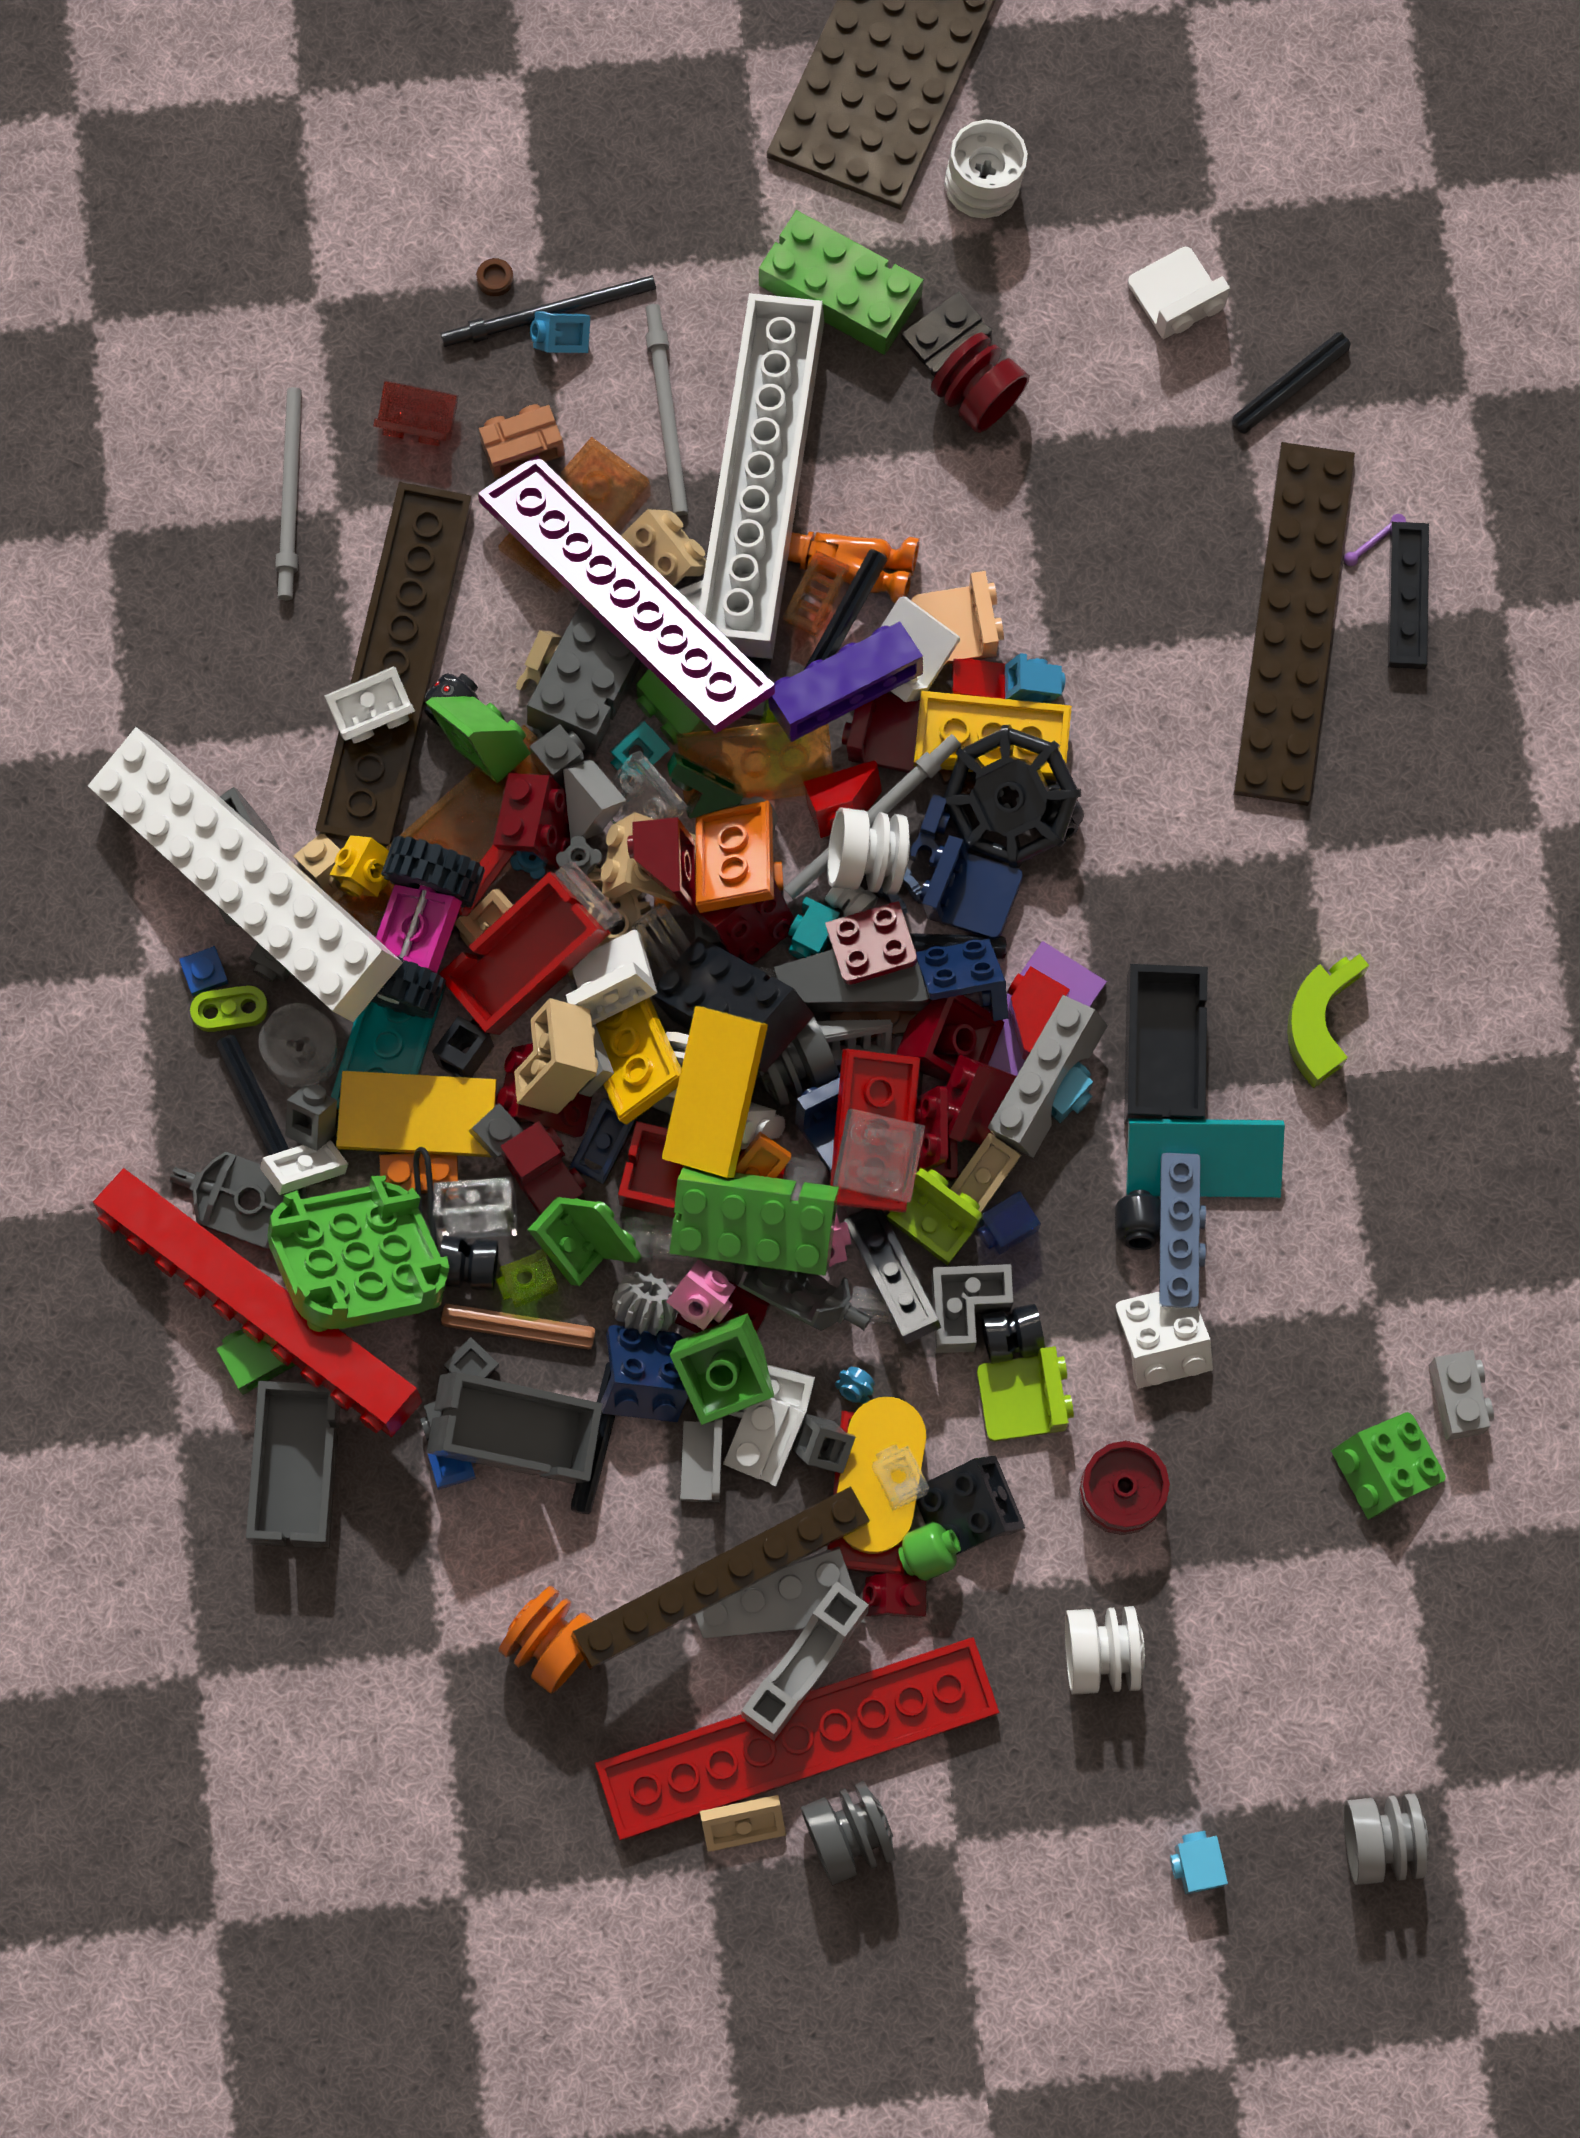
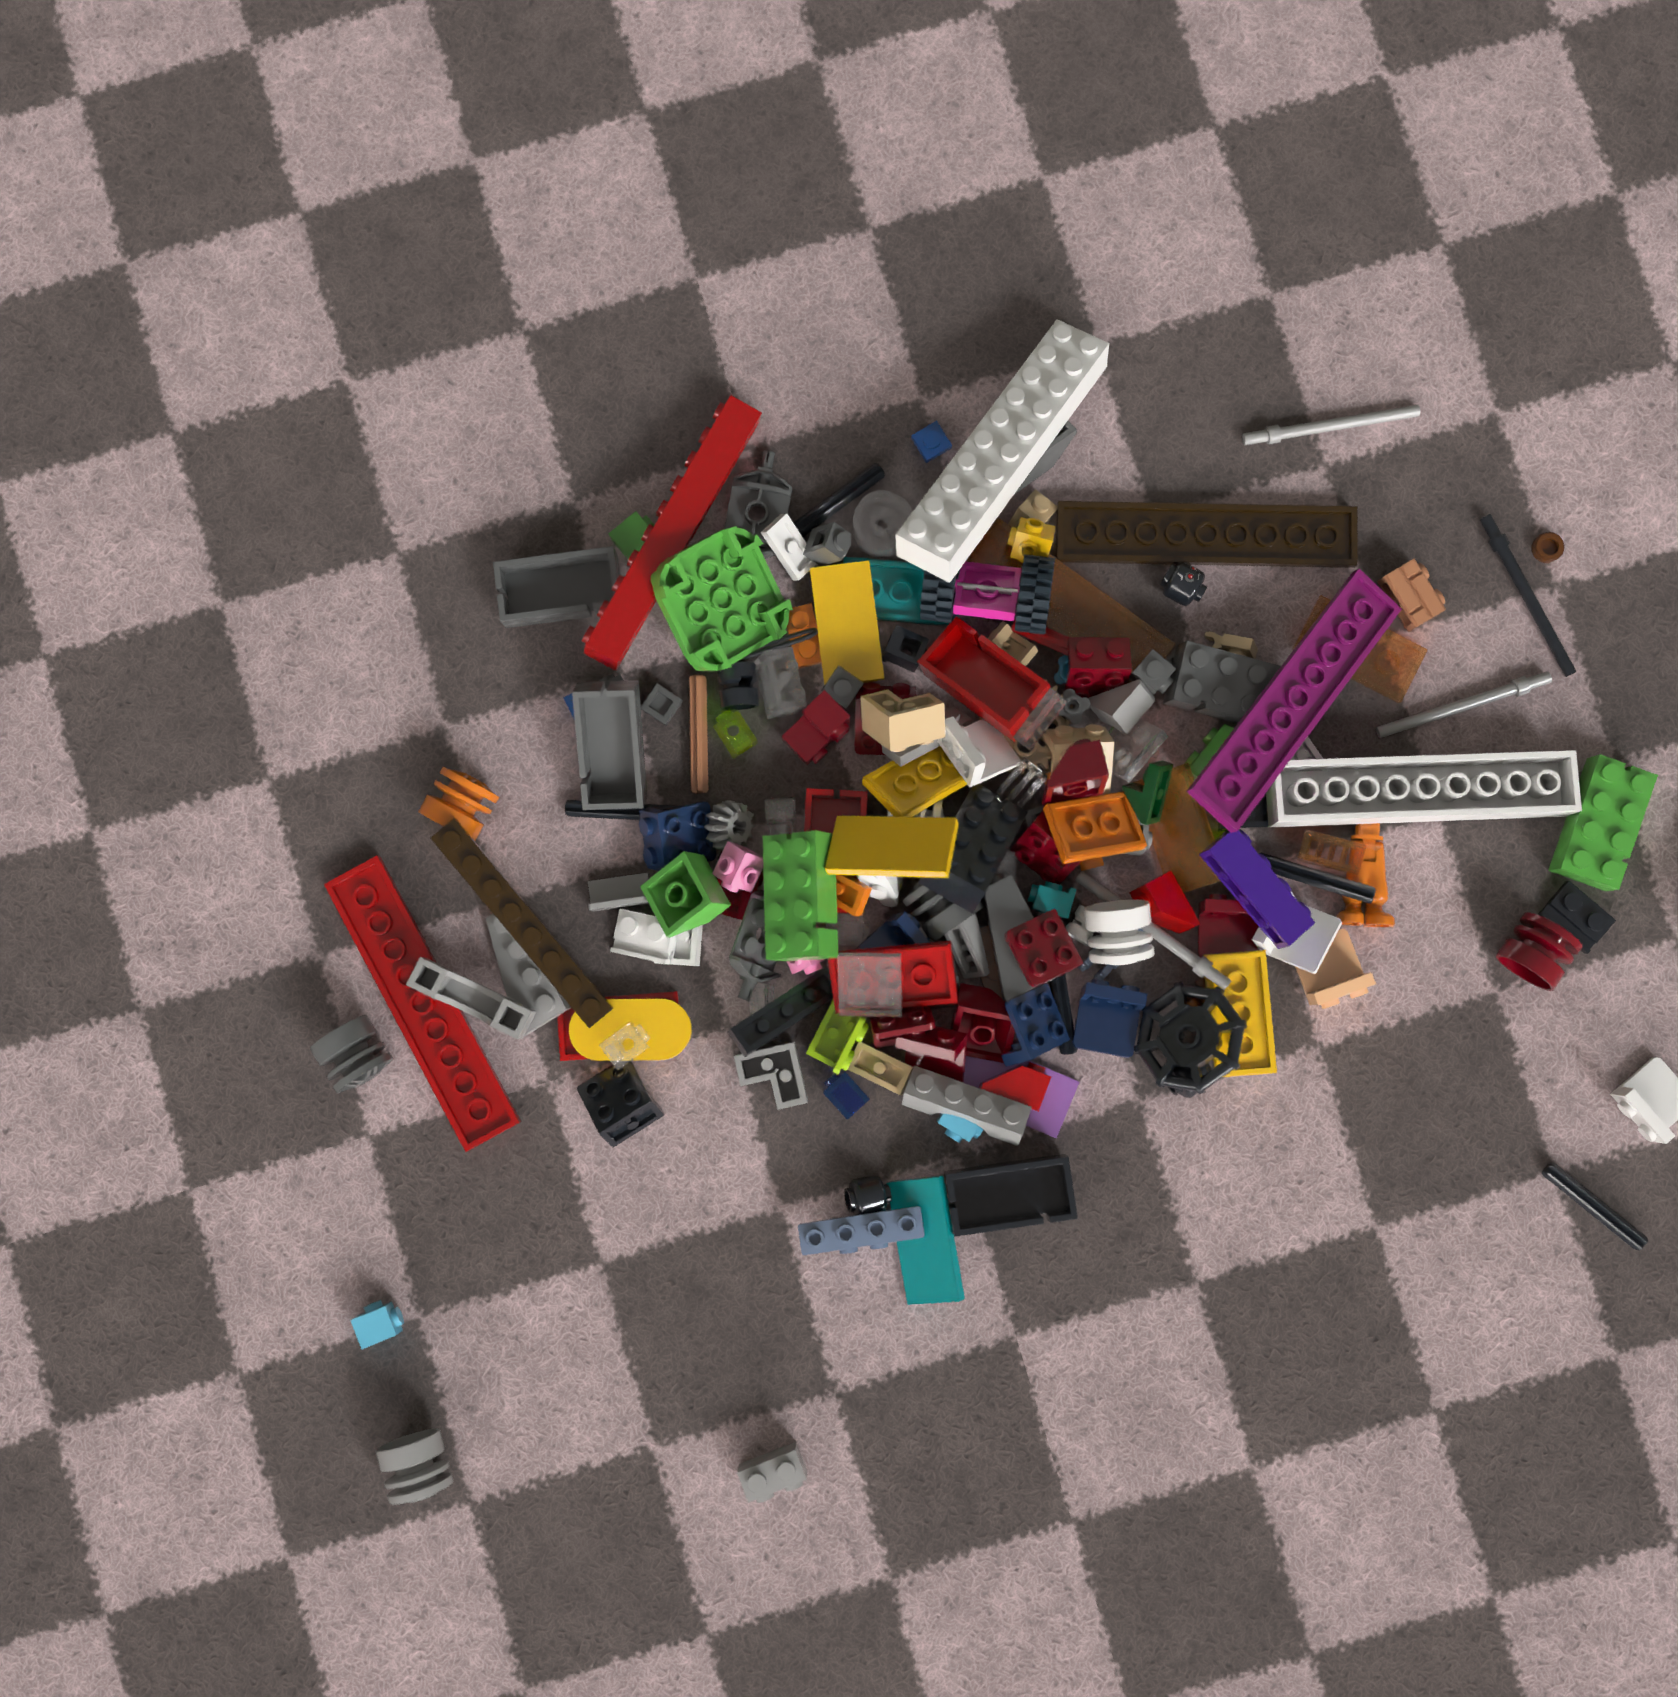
camera: 85 degrees right, 10 degrees up
(229, 1007) = (905, 467): lime plate -> none
(370, 705) = (1165, 520): white bracket -> none
(416, 412) = (1418, 508): clear red bracket -> none
(481, 734) = (1159, 610): bright green slope -> none
(560, 332) = (1510, 608): dark azure bracket -> none
(580, 1236) = (769, 765): bright green bracket -> none
(602, 1142) = (850, 769): dark blue slope -> none
(646, 738) = (1184, 739): teal brick -> none
(665, 546) = (1345, 724): tan bracket -> none
(743, 1823) = (352, 973): tan plate -> none
(823, 1444) = (644, 982): dark grey brick -> none
(855, 1385) = (697, 998): dark azure plate -> none
(895, 1595) = (542, 1057): dark red bracket -> none
(929, 1551) = (576, 1077): bright green head -> none
(934, 822) = (1160, 980): dark blue plate -> none
(978, 678) = (1286, 1003): red slope -> none
(1025, 1396) = (712, 1130): lime bracket -> none
(1026, 1330) = (758, 1112): black wheel -> none
(1033, 680) = (1293, 1038): dark azure brick -> none
(1103, 1650) = (522, 1225): white wheel -> none
(1120, 1511) = (635, 1229): dark red wheel -> none
(1164, 1340) = (774, 1230): white bracket -> none
(1294, 624) = (1388, 1241): dark brown plate -> none
(1307, 1032) = (1054, 1303): lime arch -> none
(1351, 558) = (1491, 1311): medium lavender hinge -> none
(1388, 1464) = (709, 1423): bright green bracket -> none
(1408, 595) = (1429, 1331): black plate -> none

